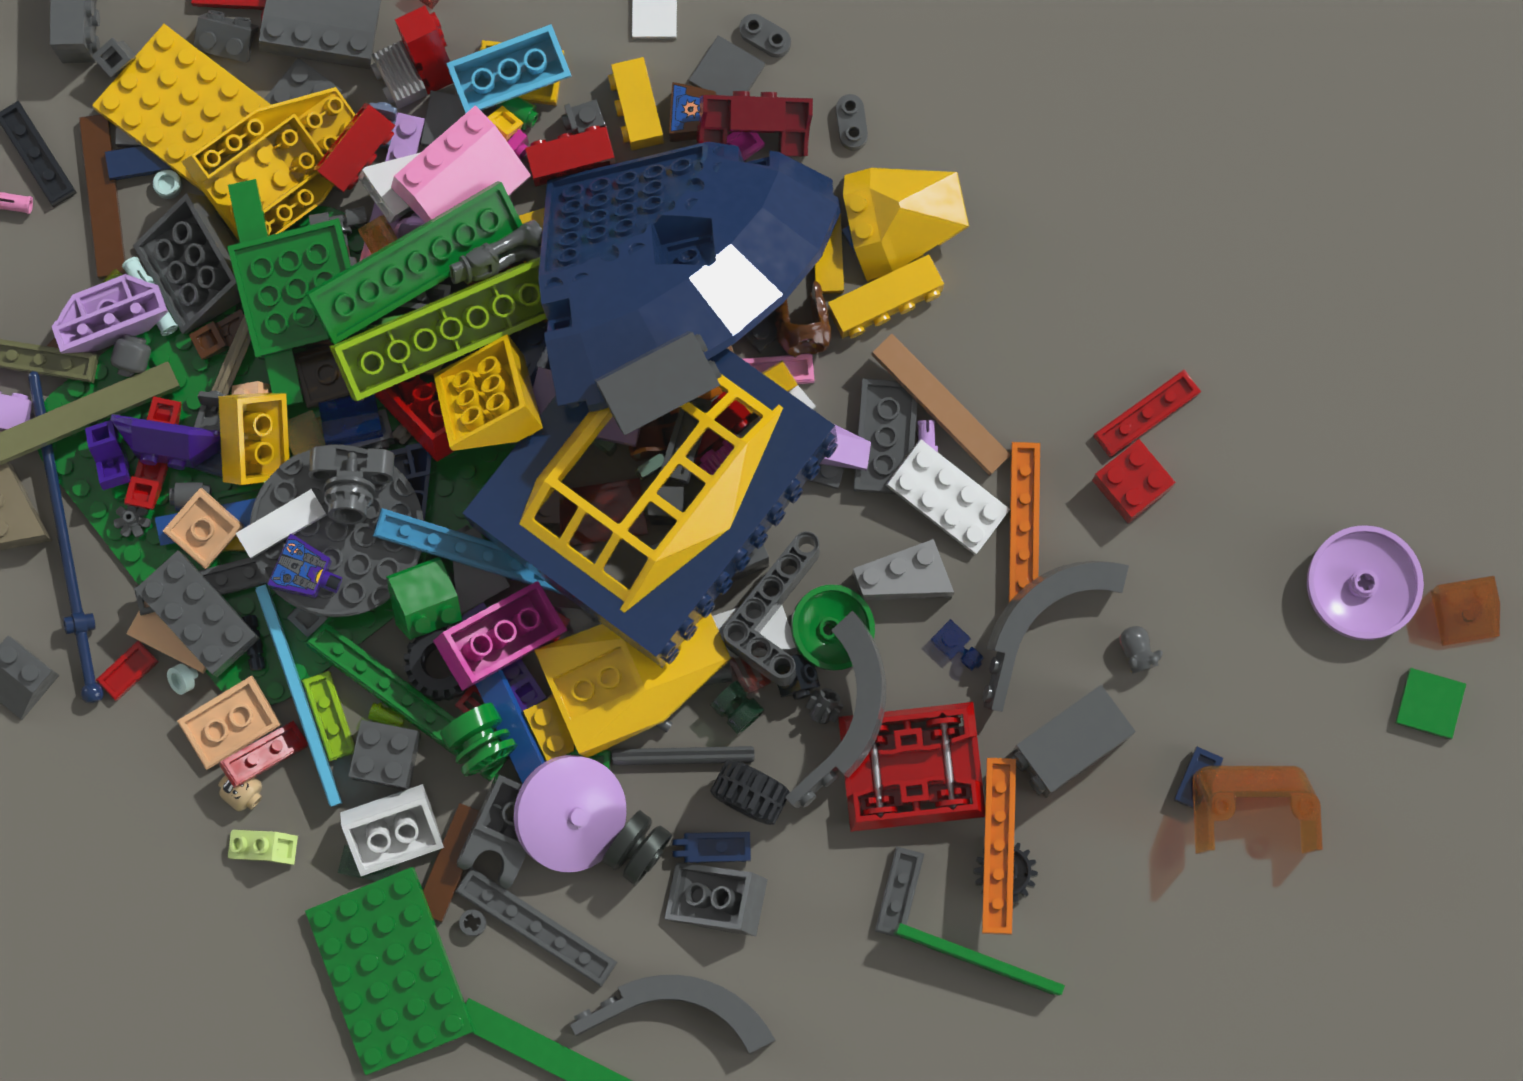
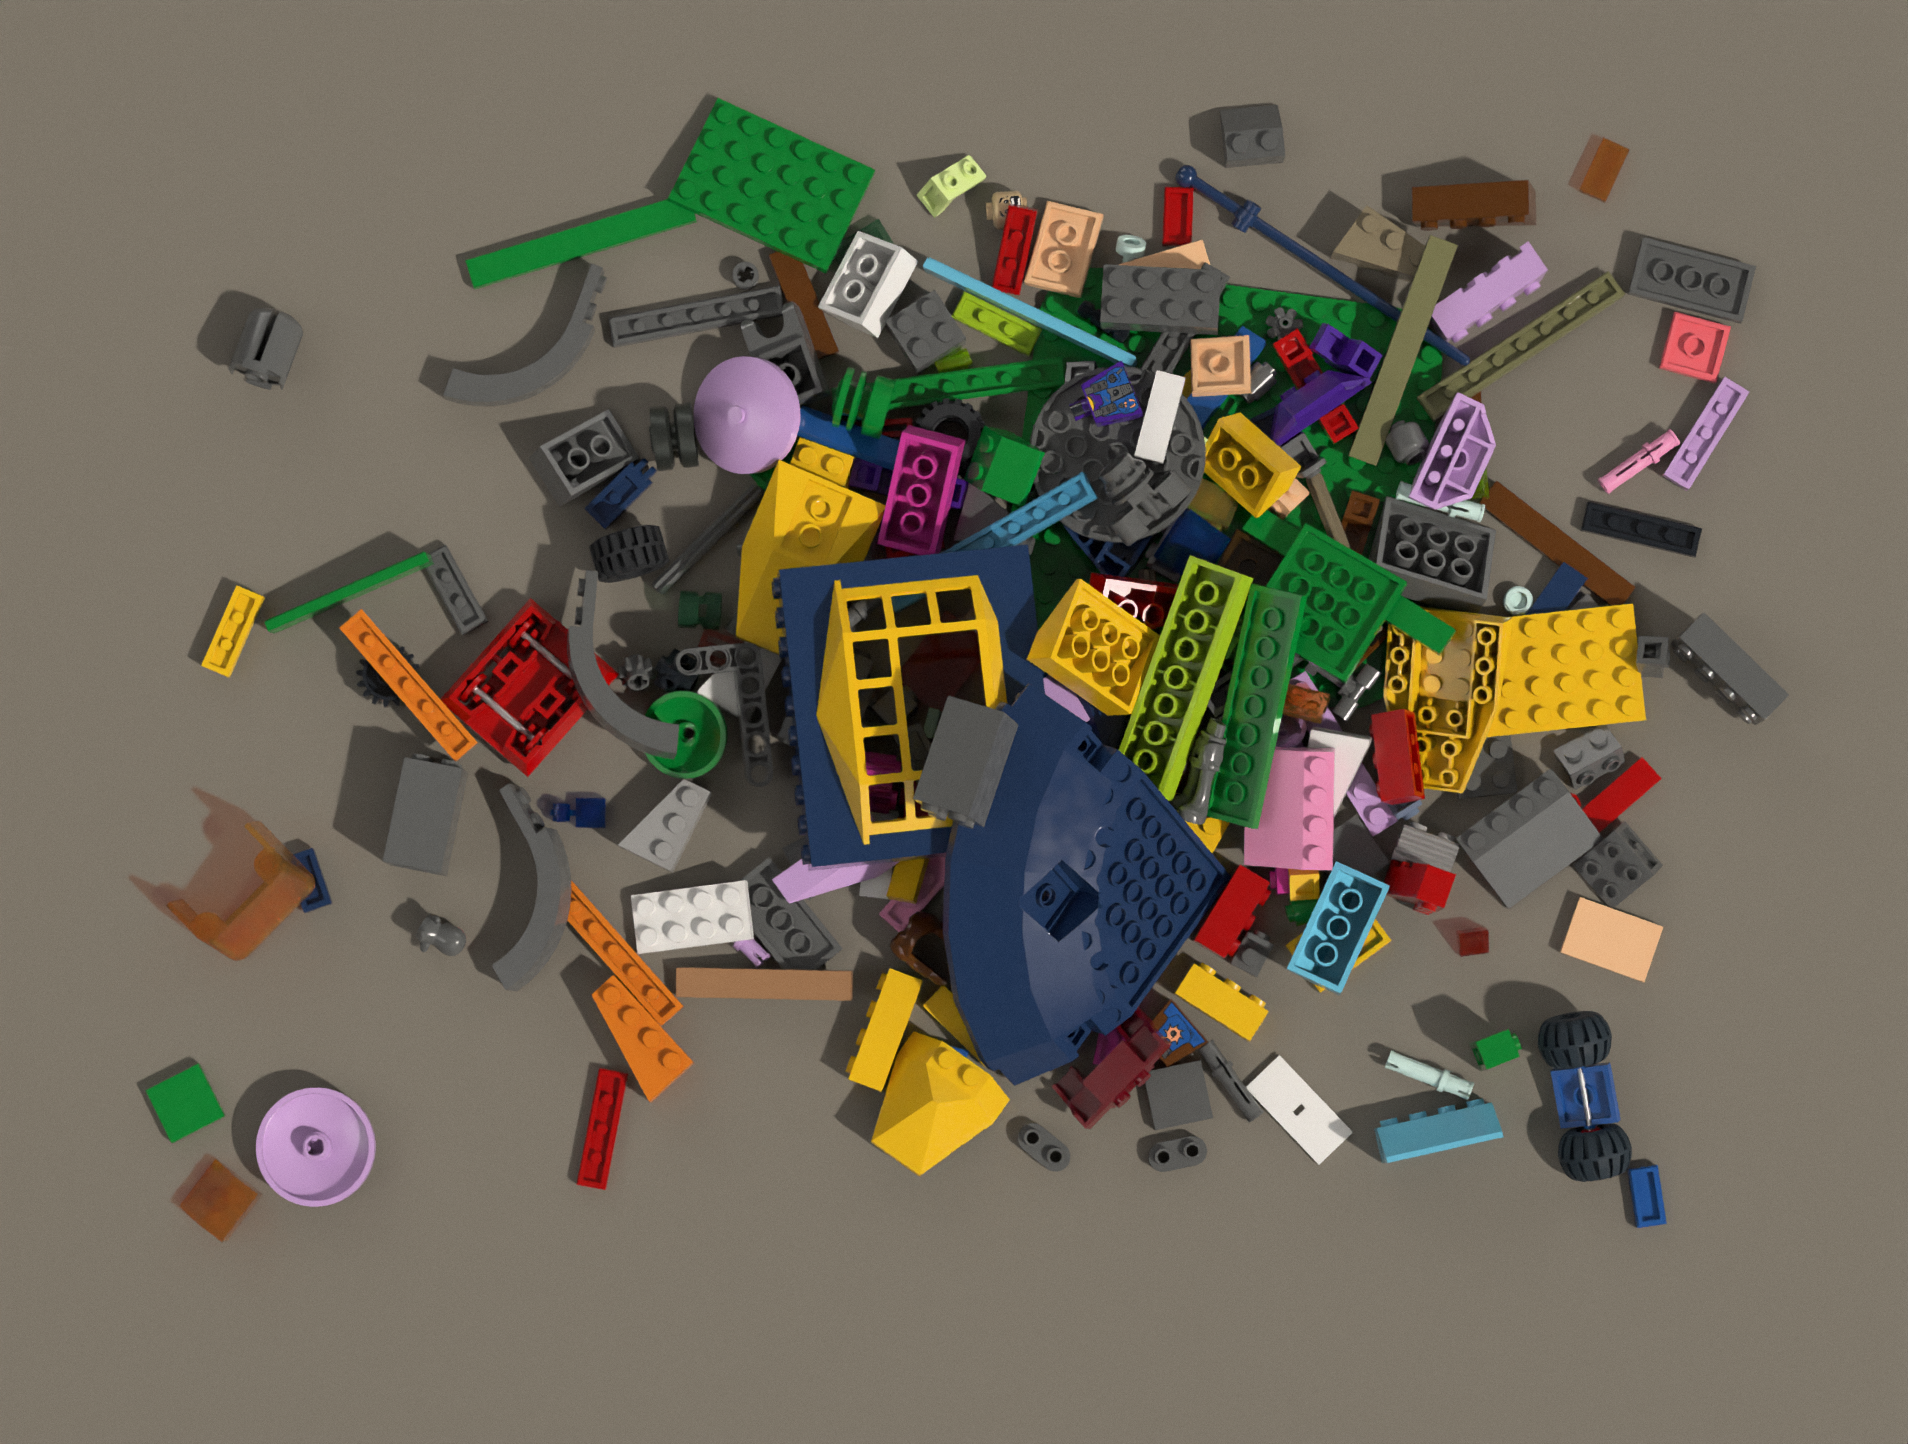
camera: 135 degrees right, 5 degrees up
(680, 59) = (1230, 1080): none -> dark grey pin
(1063, 437) = (643, 1041): none -> orange wedge
(1089, 1013) = (233, 631): none -> yellow plate
(1133, 481) = (562, 1062): red brick -> none

